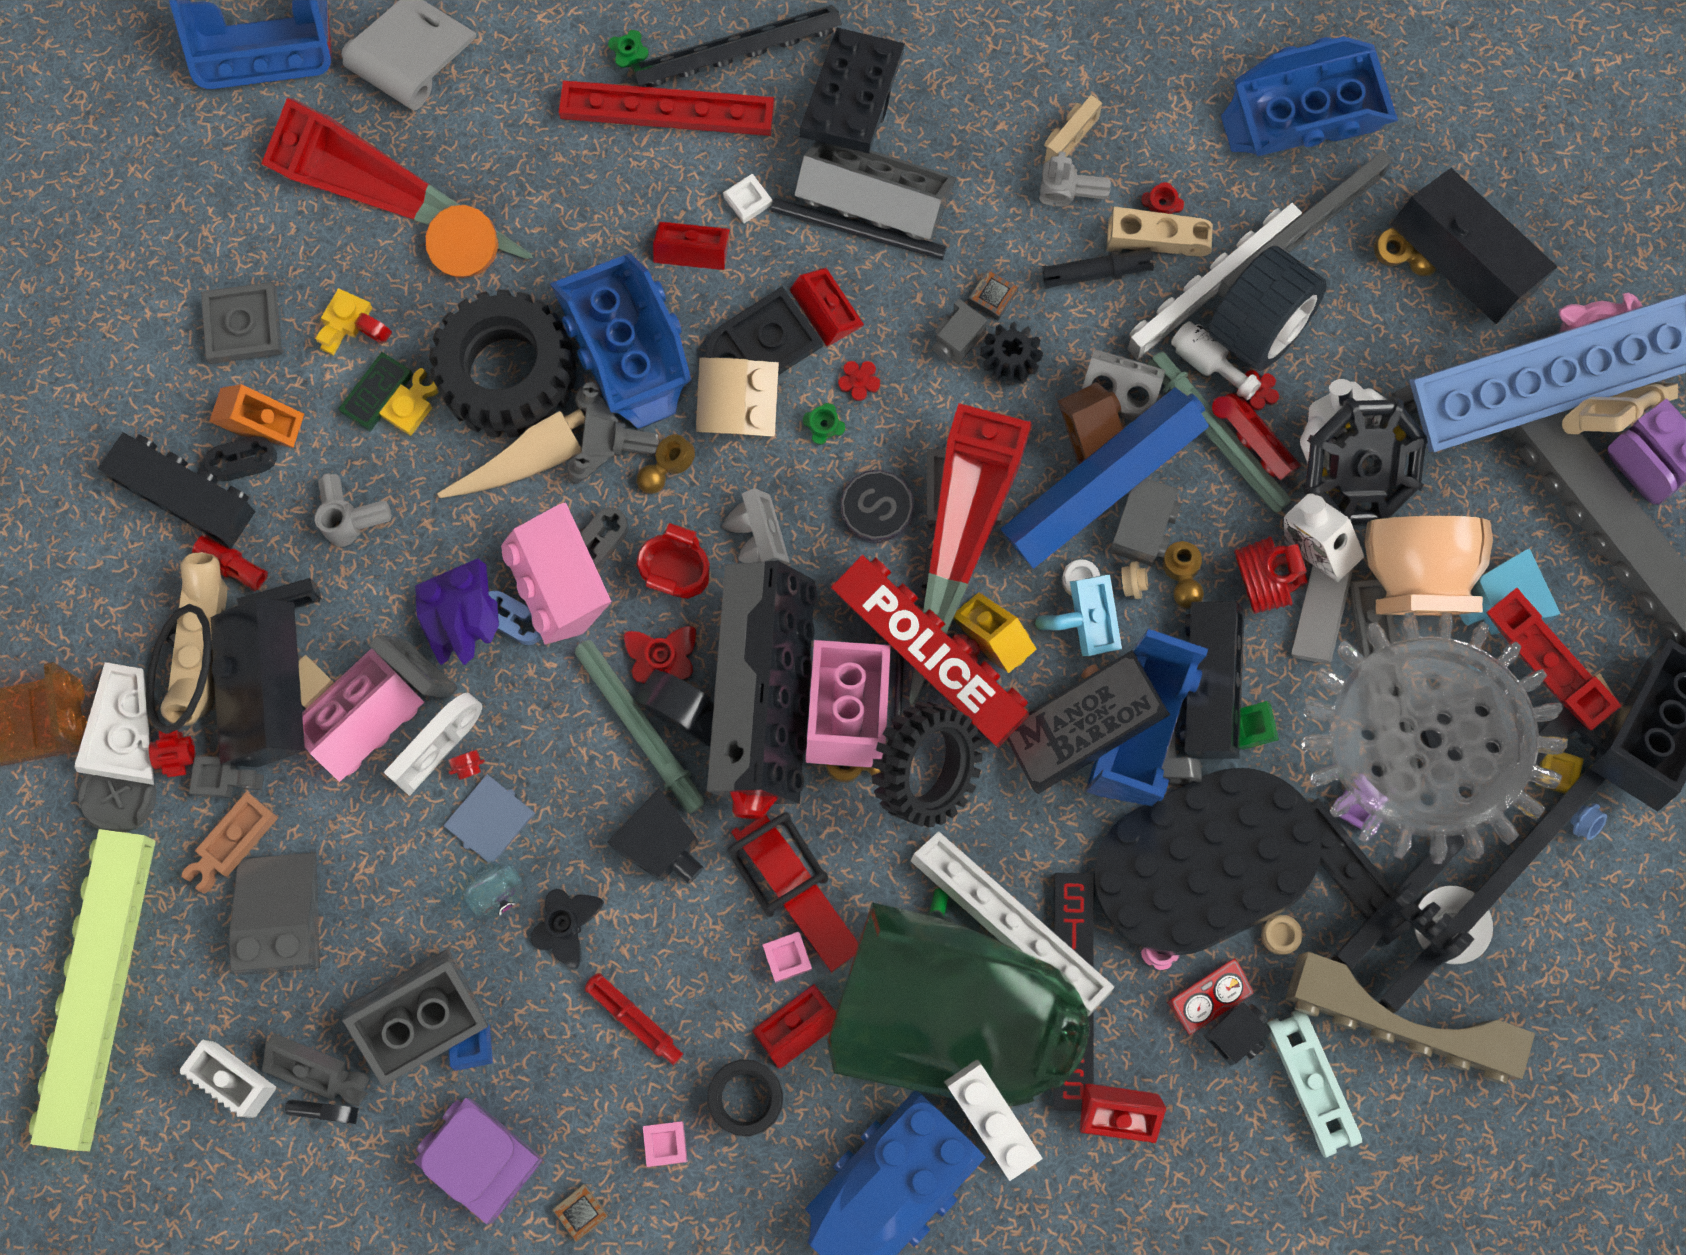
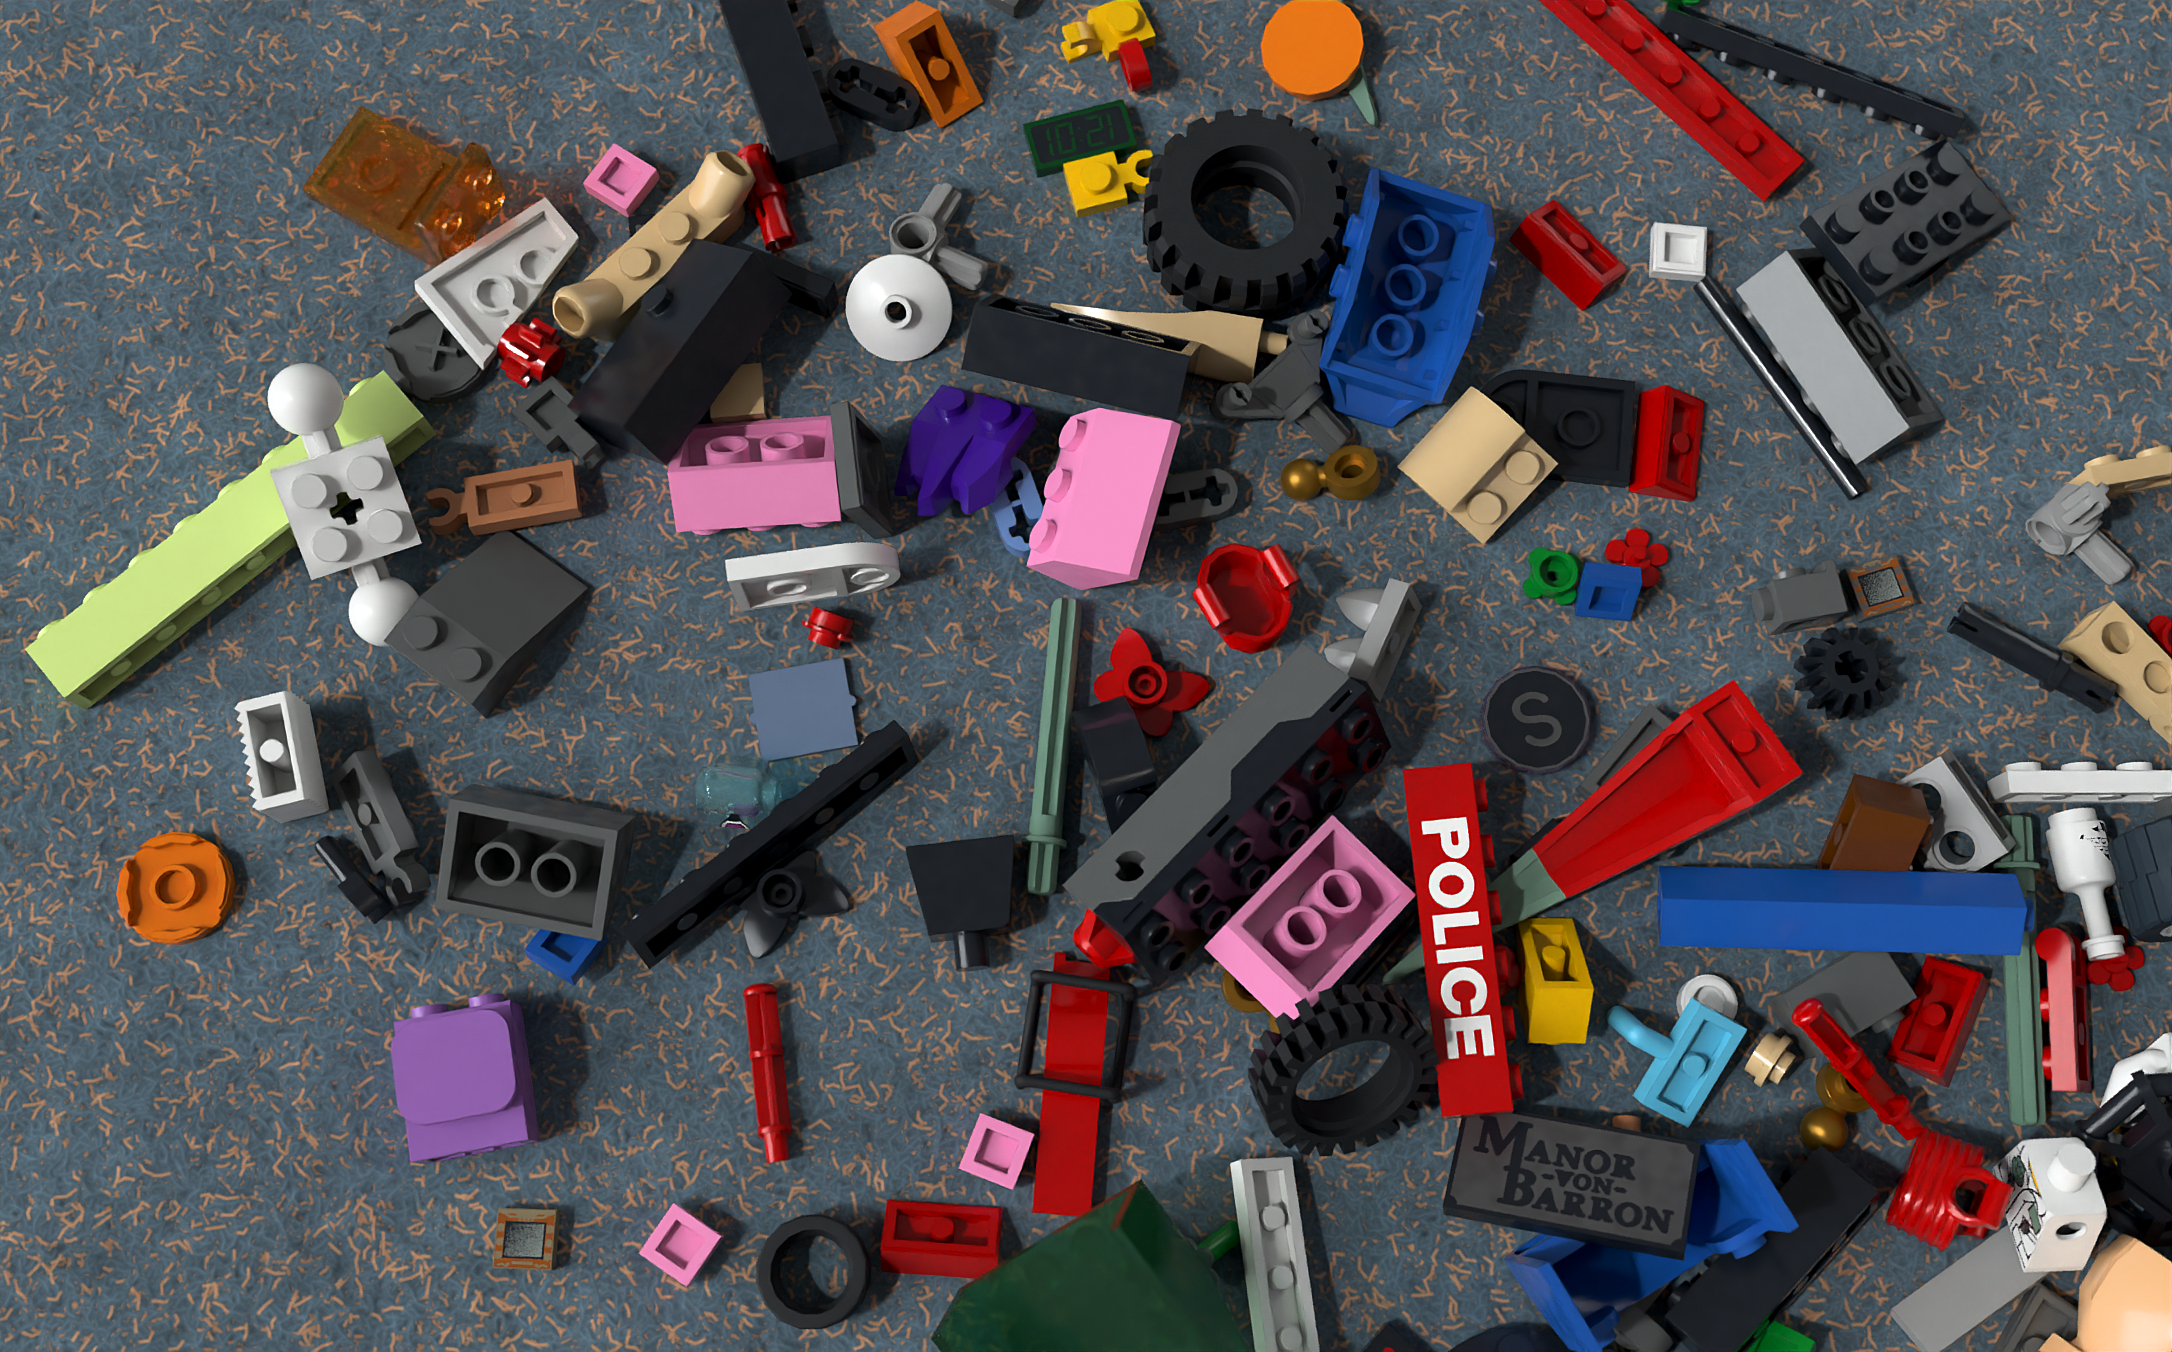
camera: 35 degrees right, 0 degrees up
(80, 878) = (308, 404): none -> white brick
(139, 618) = (621, 180): none -> bright pink plate
(203, 673) = (627, 286): black piece -> none
(243, 1200) = (193, 896): none -> orange tile
(351, 545) = (905, 281): none -> white dish
(480, 509) = (1081, 356): none -> black brick
(534, 901) = (770, 844): none -> black plate
(859, 408) = (1608, 591): none -> blue plate
(1177, 548) = (1856, 1067): none -> red piece
(1200, 491) = (1938, 1020): none -> red slope

